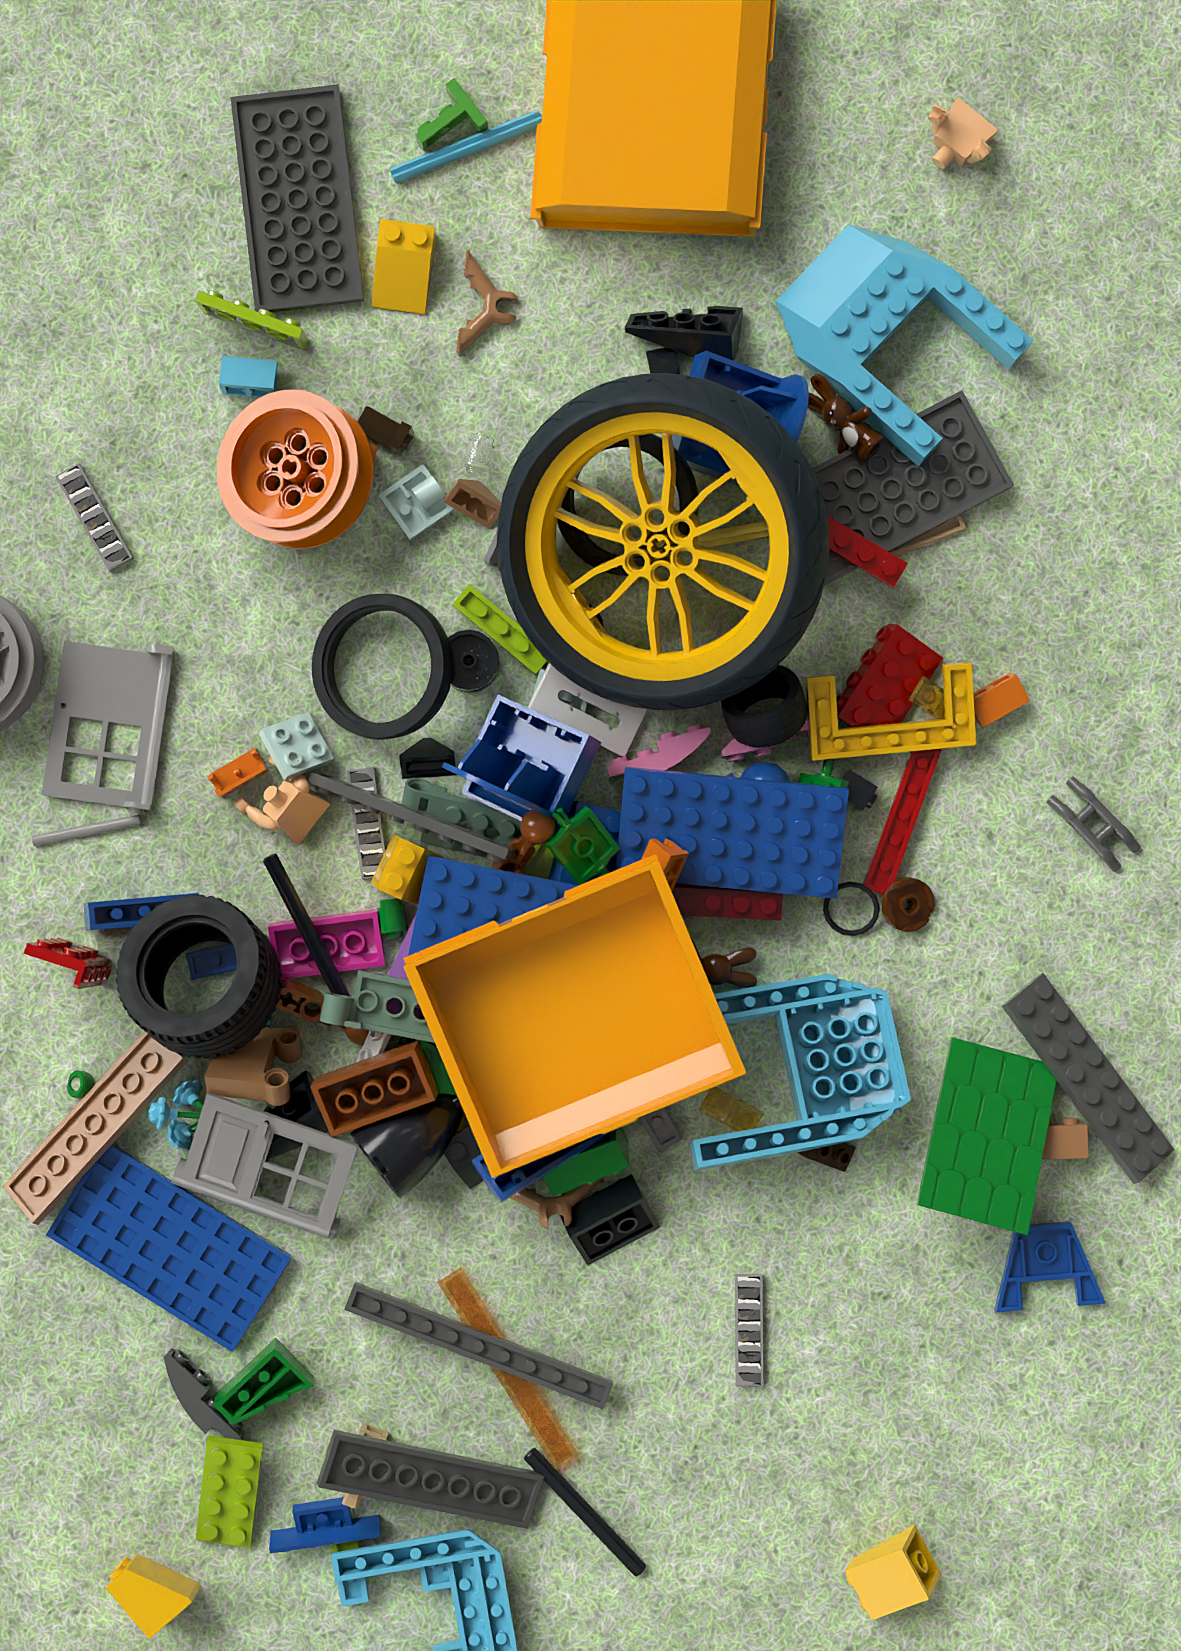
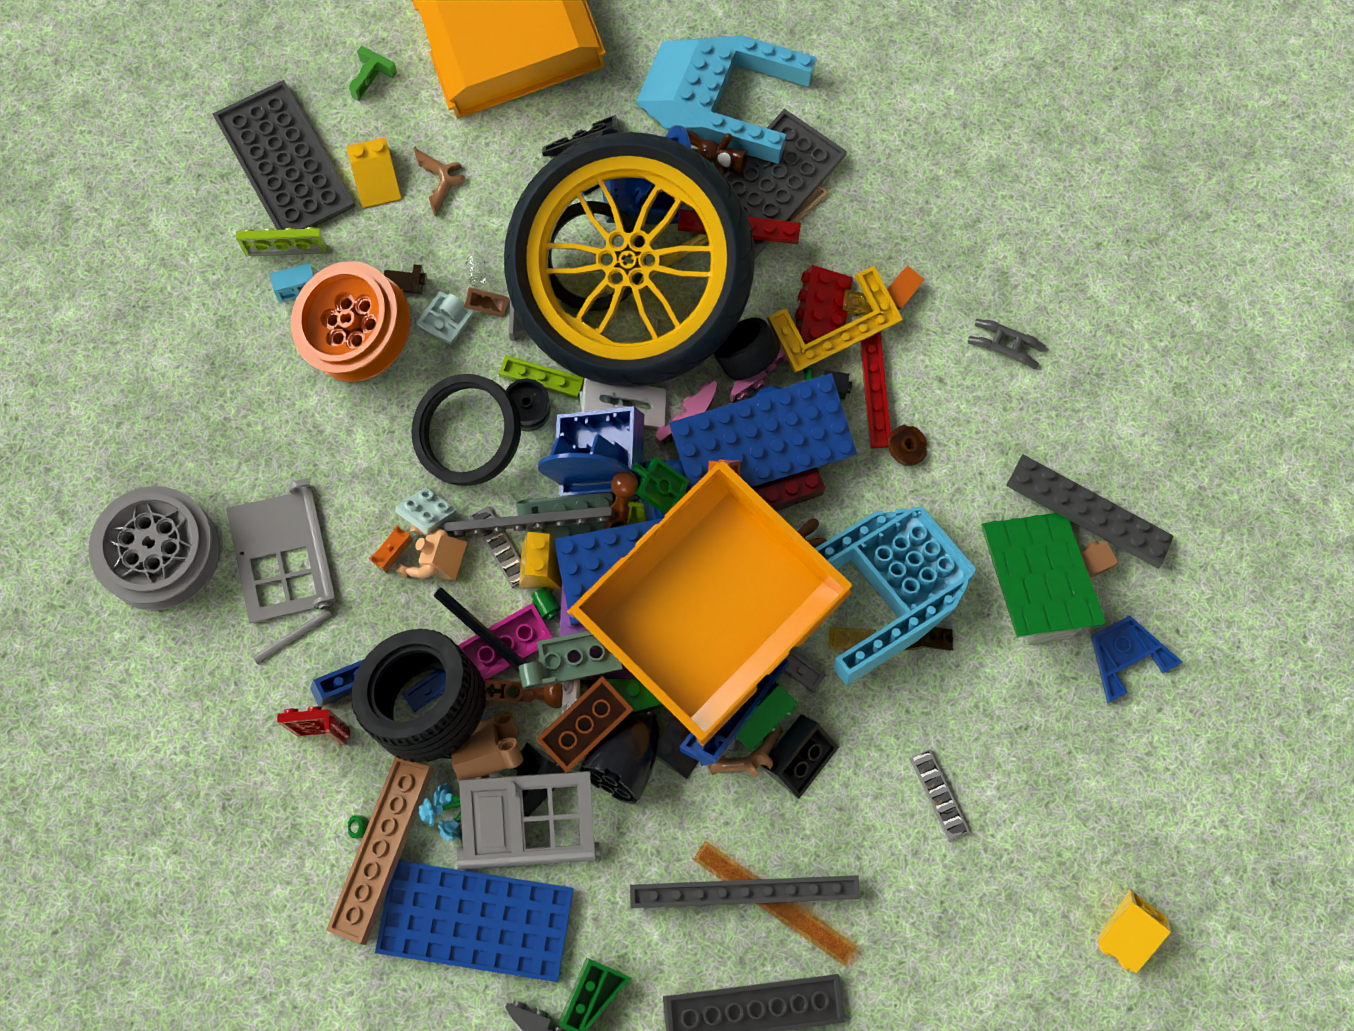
camera: 25 degrees left, 15 degrees down
(94, 517) = (217, 417): tile -> none
(426, 759) = (525, 485): black slope -> none
(466, 147) = (386, 88): medium azure axle -> none
(585, 1512) = (883, 990): black axle -> none
(859, 931) = (889, 464): black piece -> none

